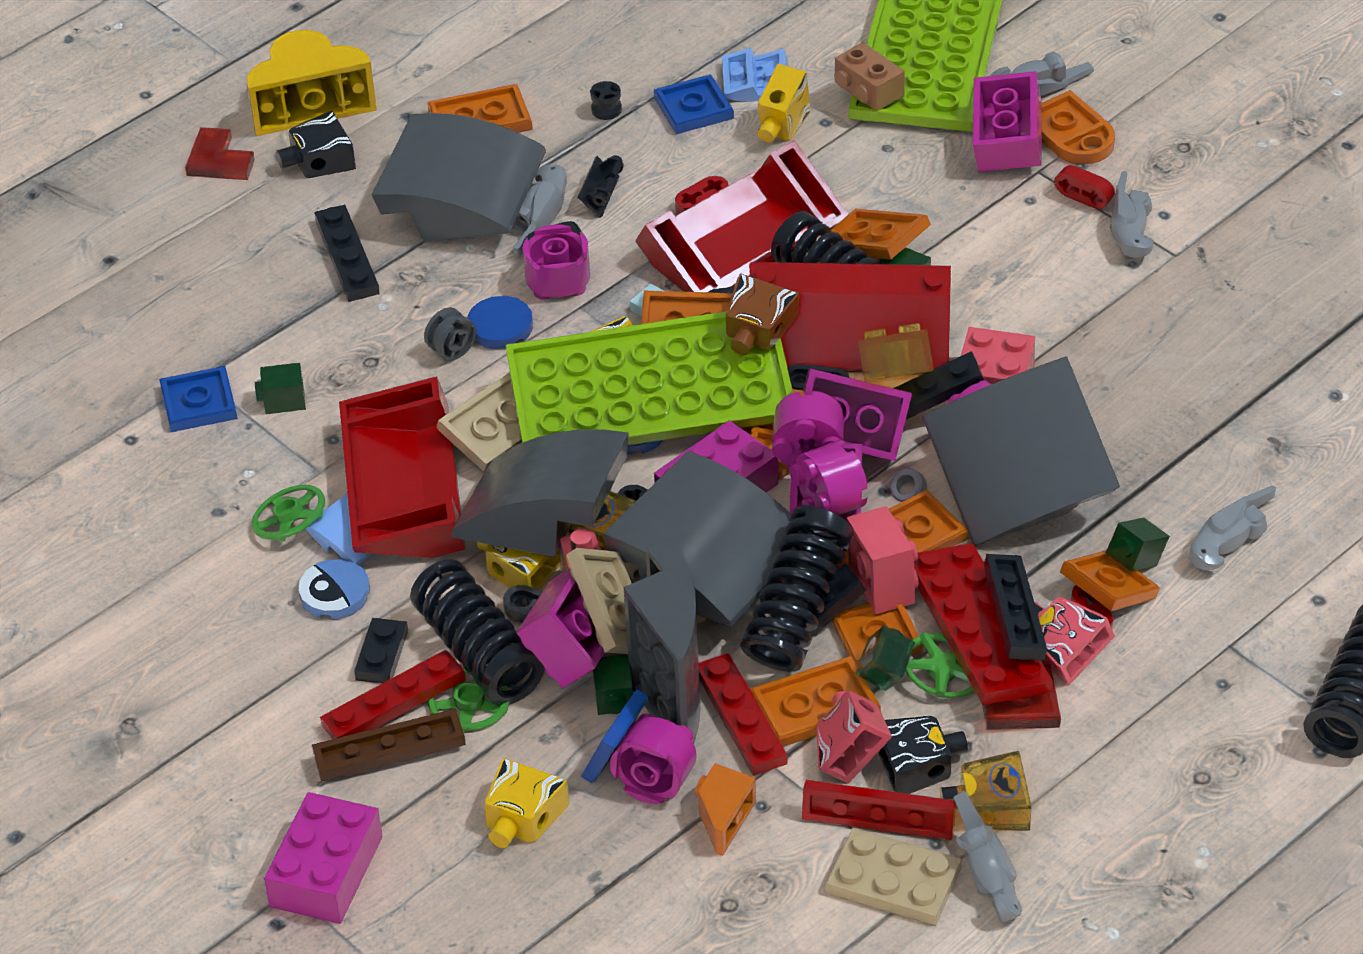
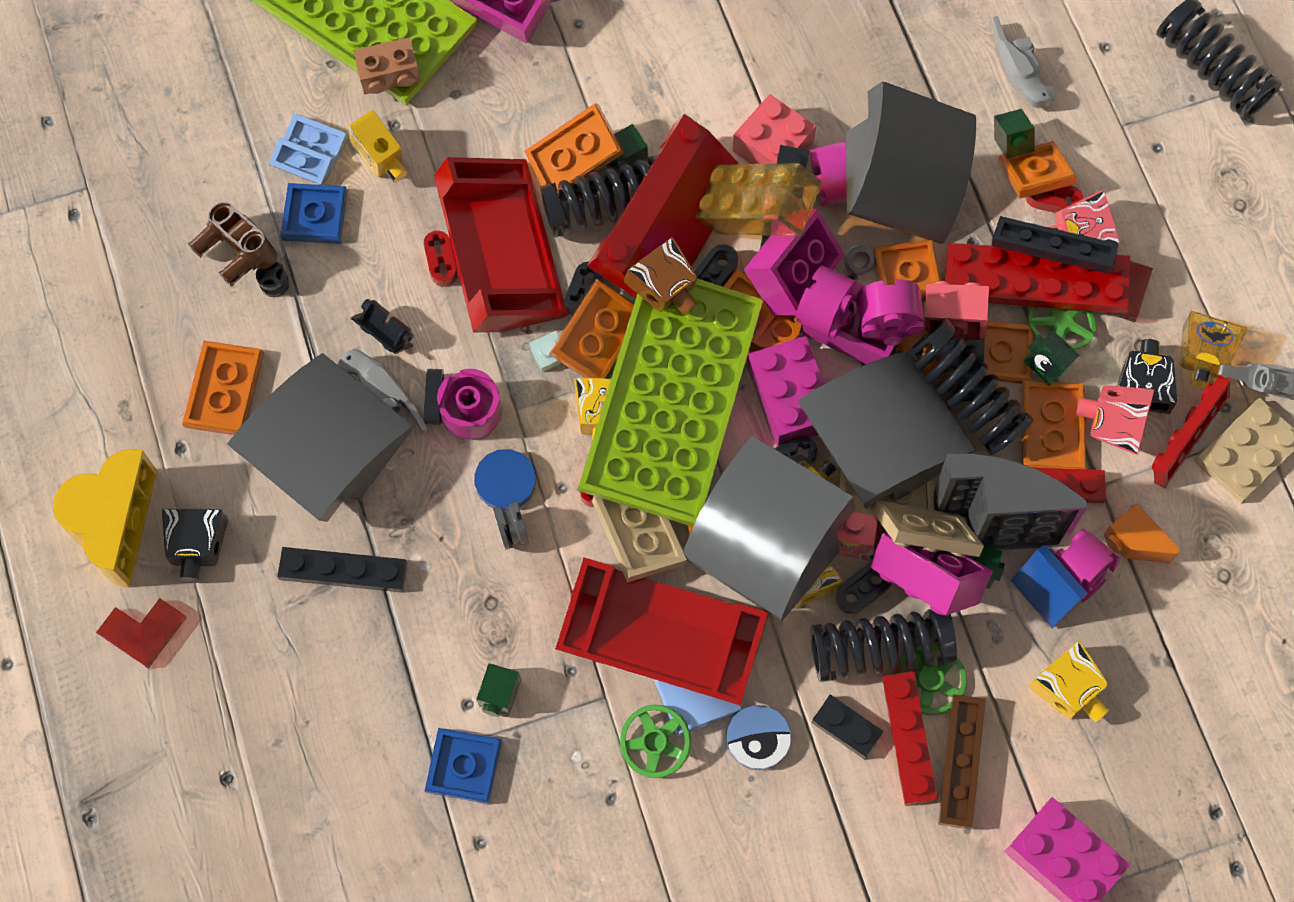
camera: 65 degrees left, 25 degrees up
(622, 57) = (242, 235): none -> reddish brown piece

